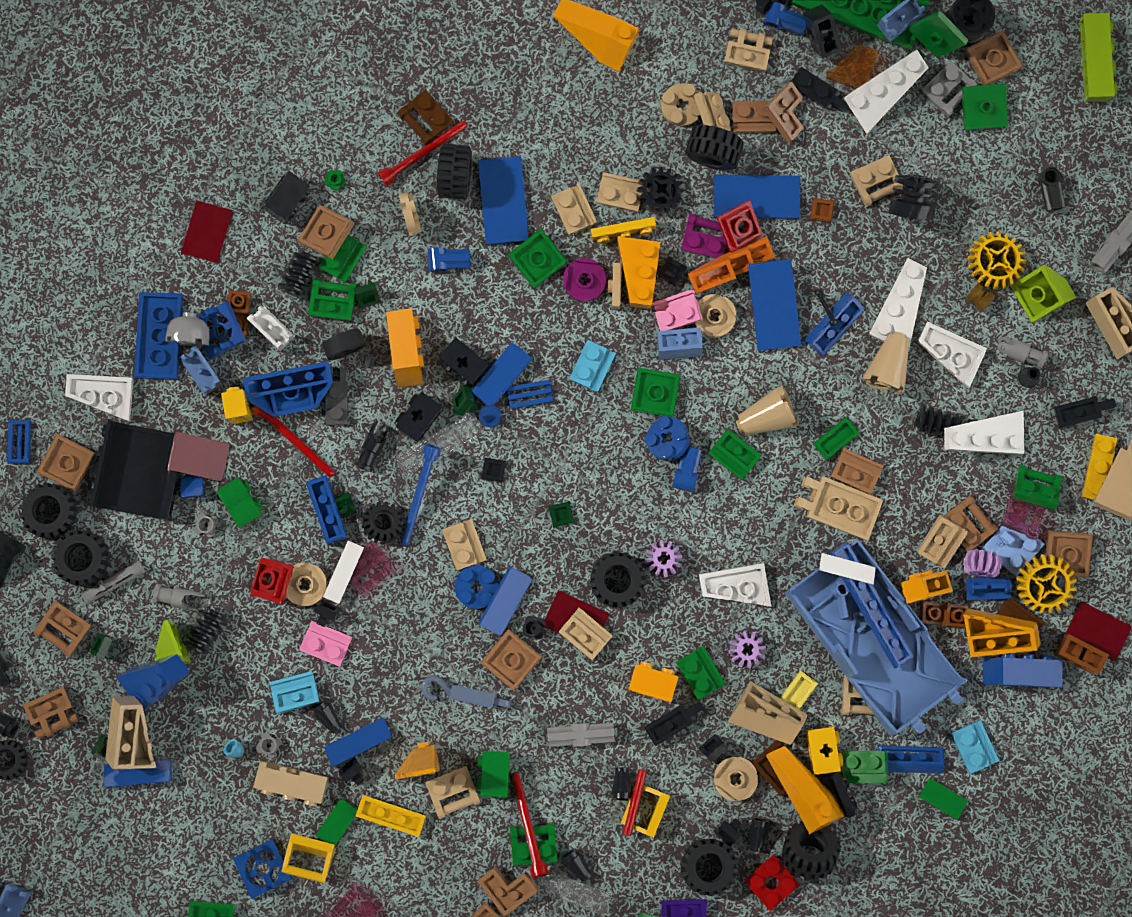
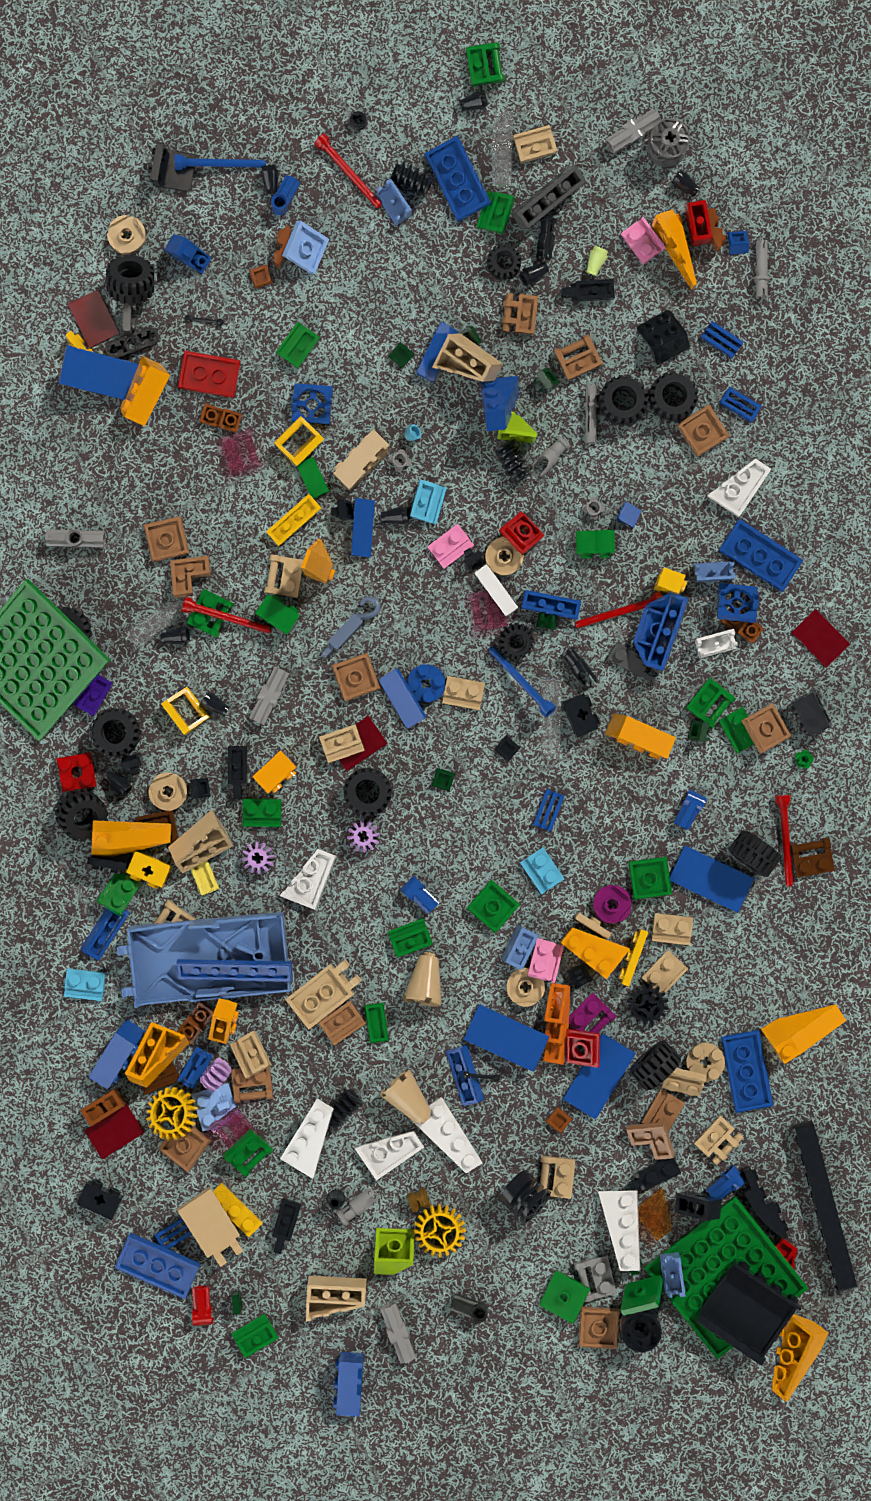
camera: 120 degrees right, 5 degrees up
(134, 472) = (665, 481): black panel -> none
(161, 808) = (401, 355): none -> dark green tile
(188, 330) = (750, 578): light grey cylinder -> none
(198, 456) = (648, 532): dark red piece -> none
(298, 273) = (745, 688): black piece -> none
(343, 344) = (670, 690): black tyre -> none
(410, 213) = (742, 800): tan plate -> none
(459, 351) = (613, 774): black brick -> none
(464, 401) = (572, 756): dark green tile -> none
(489, 416) = (549, 769): blue tile -> none
(501, 375) = (575, 797): blue slope -> none
(528, 630) = (370, 702): black plate -> none
(634, 804) = (195, 705): red bar -> none
(661, 428) = (462, 897): blue plate -> none
(666, 61) = (747, 1071): none -> blue tile
(847, 568) = (271, 968): white sticker -> none
(943, 798) = (61, 937): green tile -> none
(1097, 57) = (551, 1409): lime brick -> none

